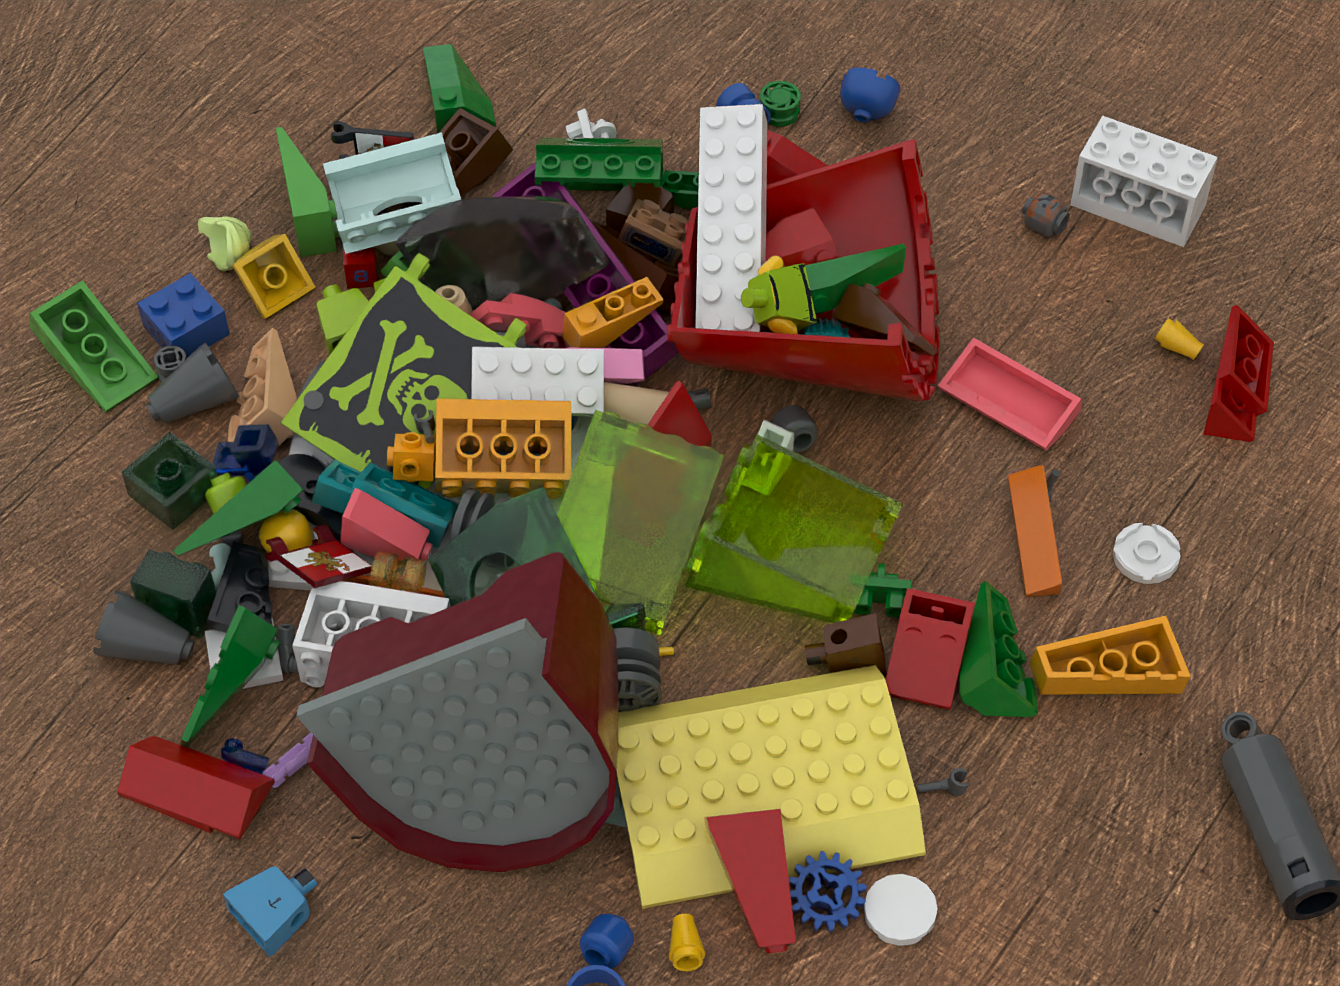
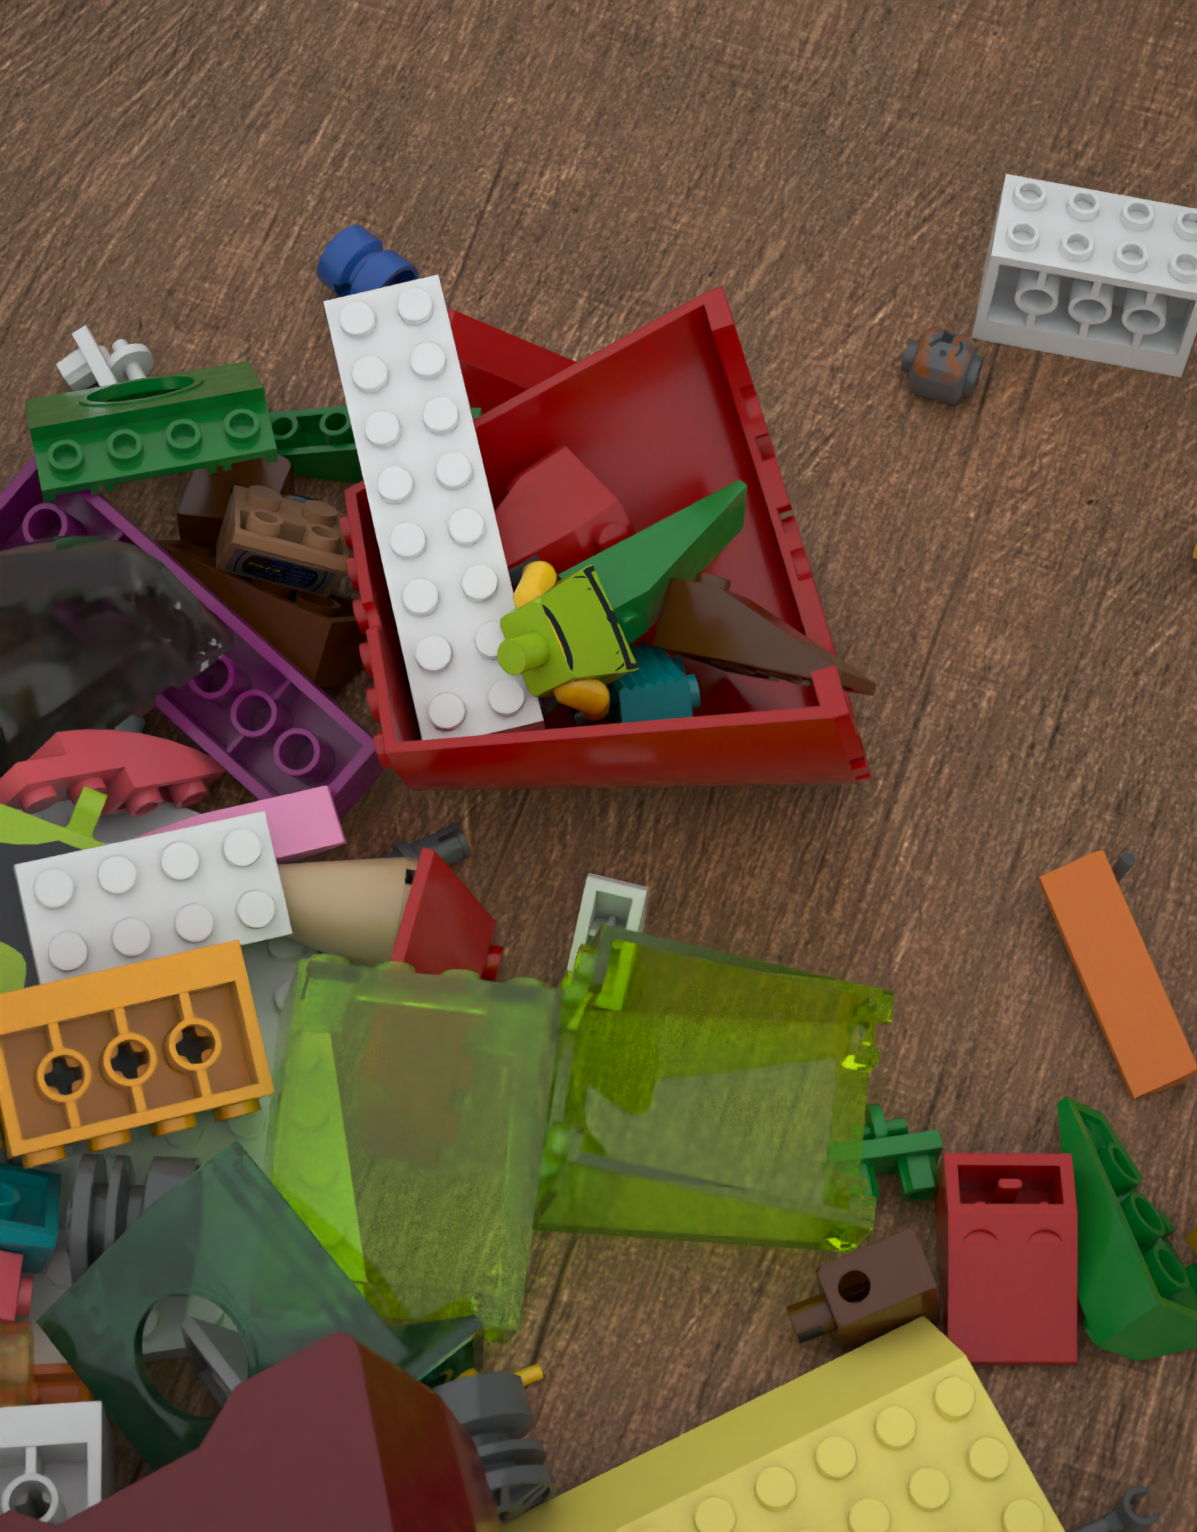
camera: 20 degrees left, 5 degrees up
(610, 316) = (251, 733): light orange slope -> none
(782, 102) = (430, 242): green wheel -> none
(800, 423) = (640, 859): dark grey head -> none
(868, 95) = (577, 204): blue cylinder -> none
(1011, 394) = (988, 716): coral slope -> none

